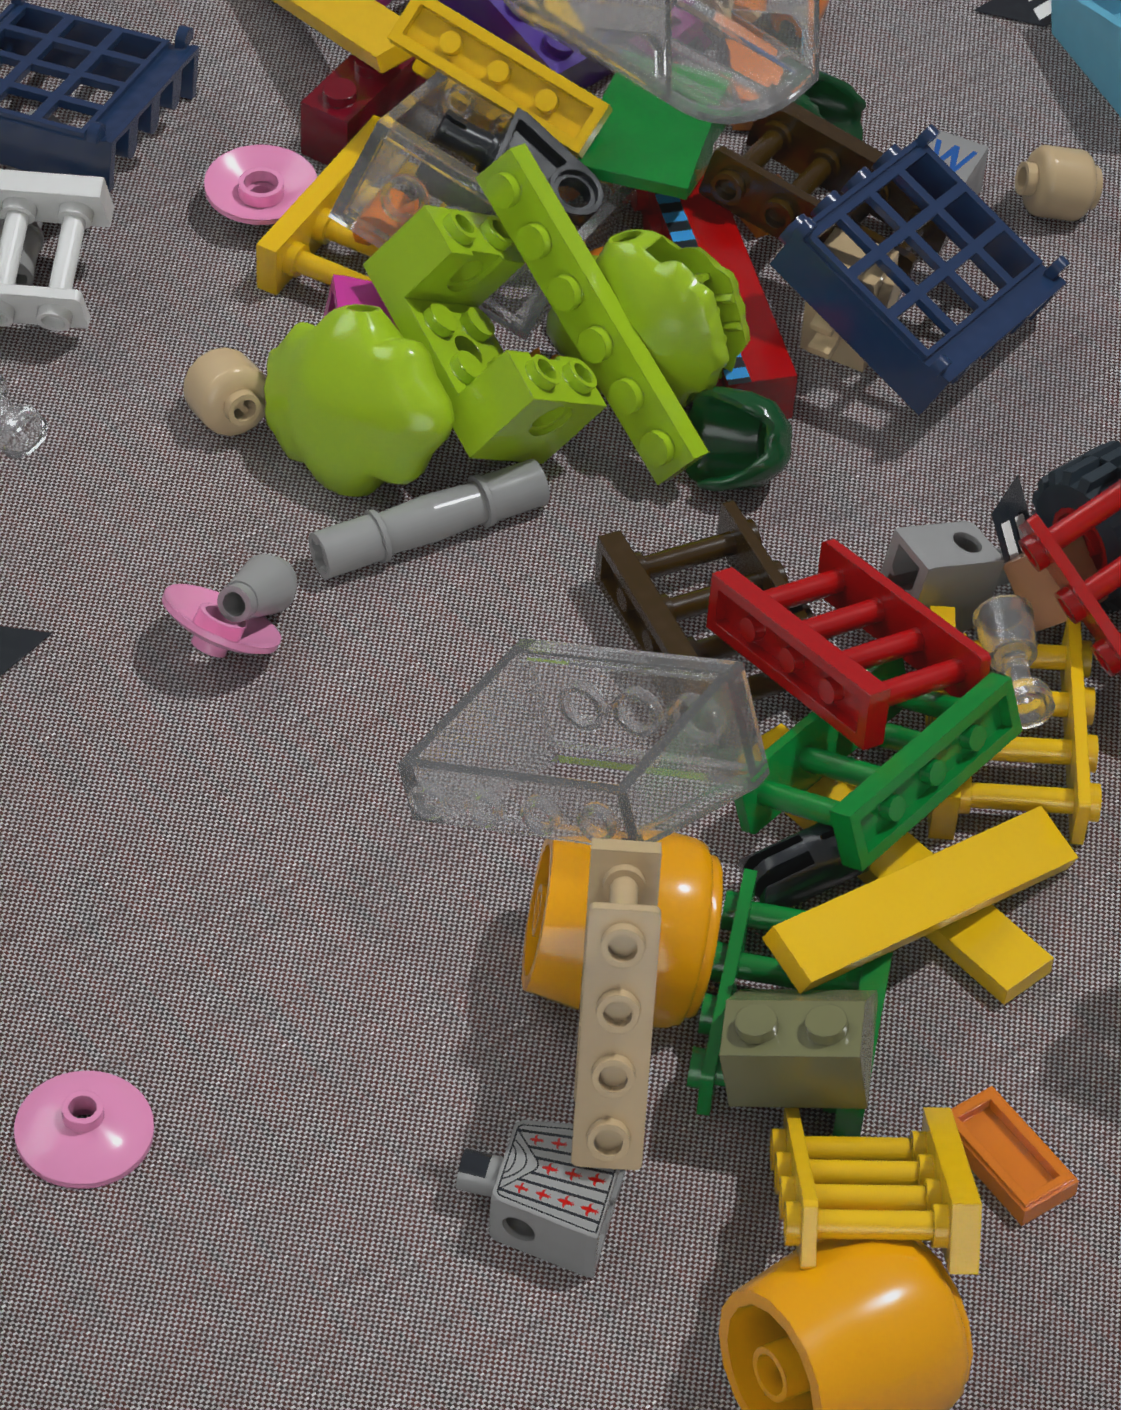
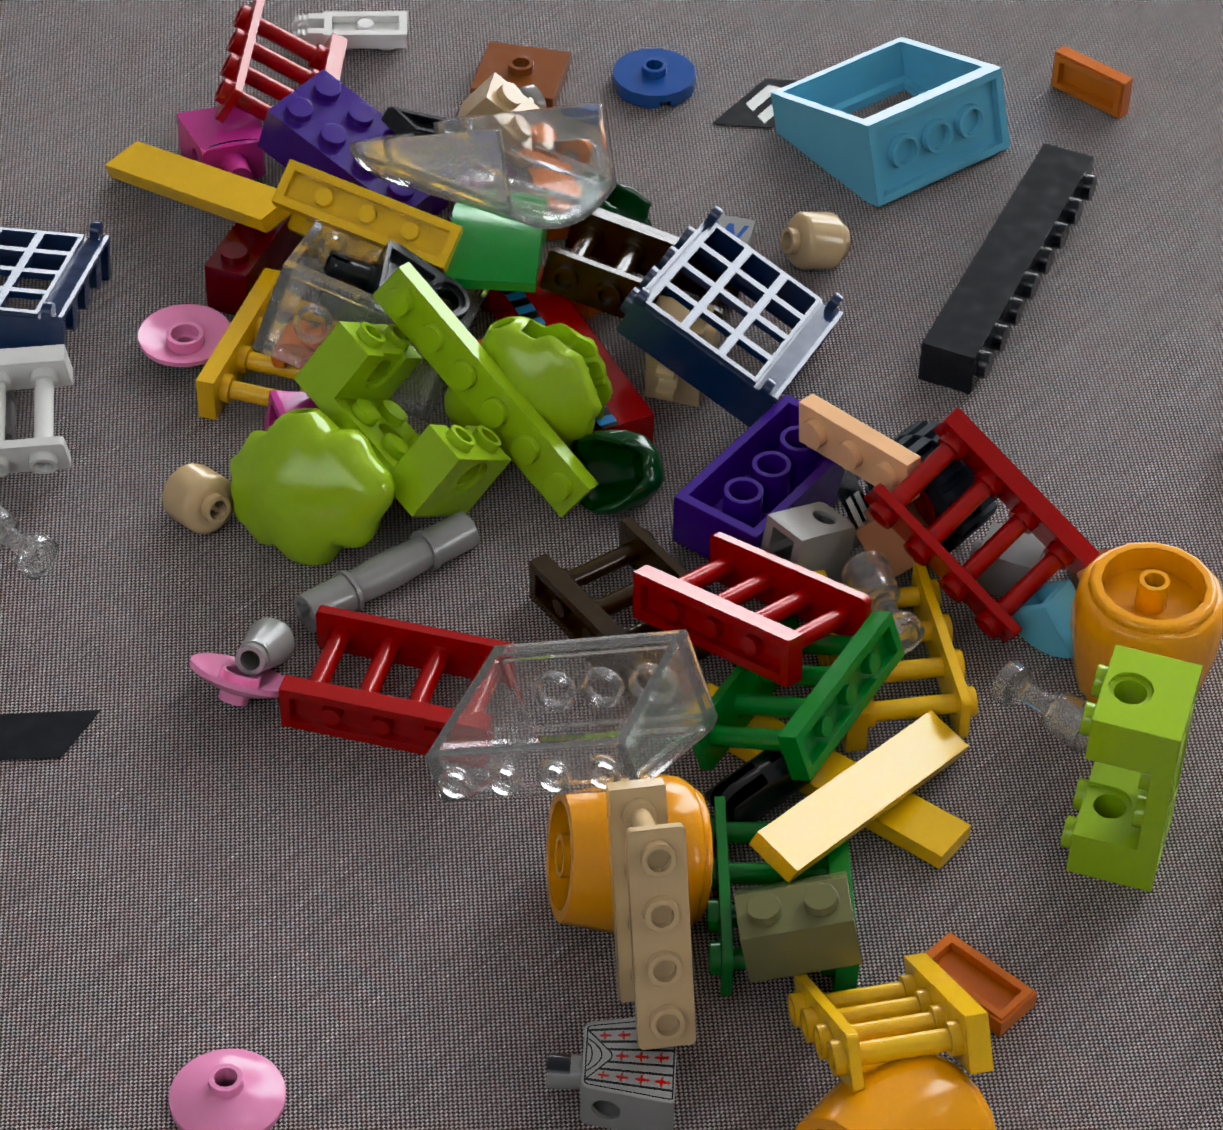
camera: 10 degrees left, 5 degrees down
(357, 690) = (363, 712): none -> red fence
(926, 467) = (752, 478): none -> dark purple brick
(1024, 457) = (854, 444): none -> light nougat plate

